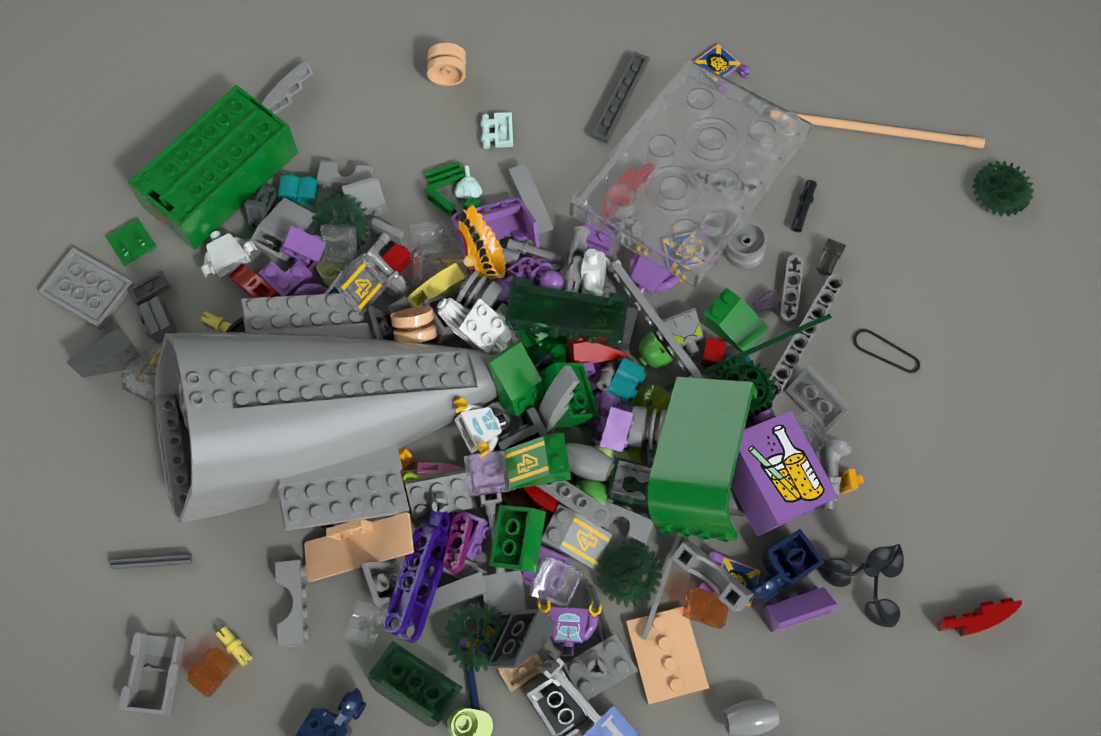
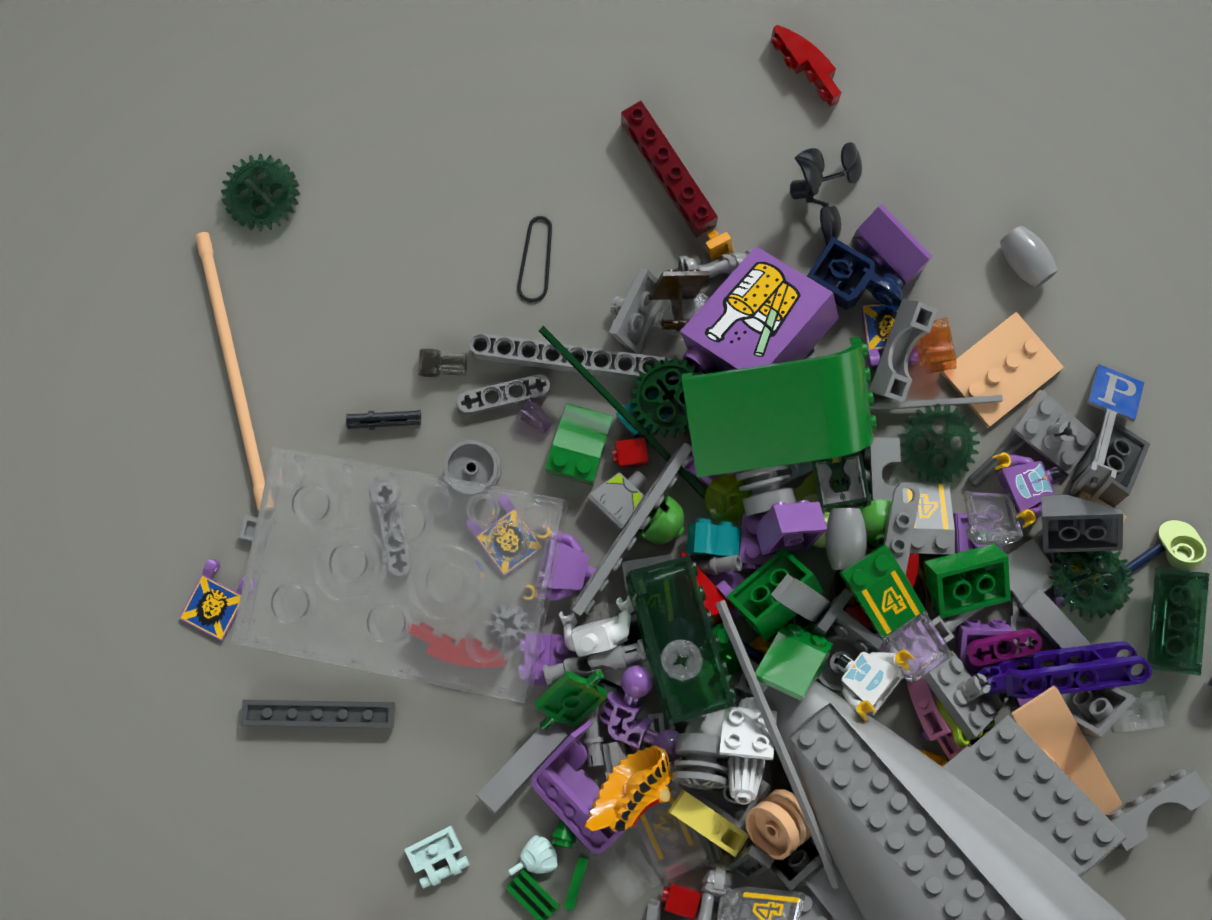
camera: 110 degrees left, 10 degrees up
(472, 337) = (778, 743): none -> light grey piece
(557, 300) = (682, 648): none -> clear gear
(559, 238) = (571, 699): none -> green plate
(826, 428) = (676, 286): none -> dark brown plate
(925, 470) = (668, 169): none -> dark red brick

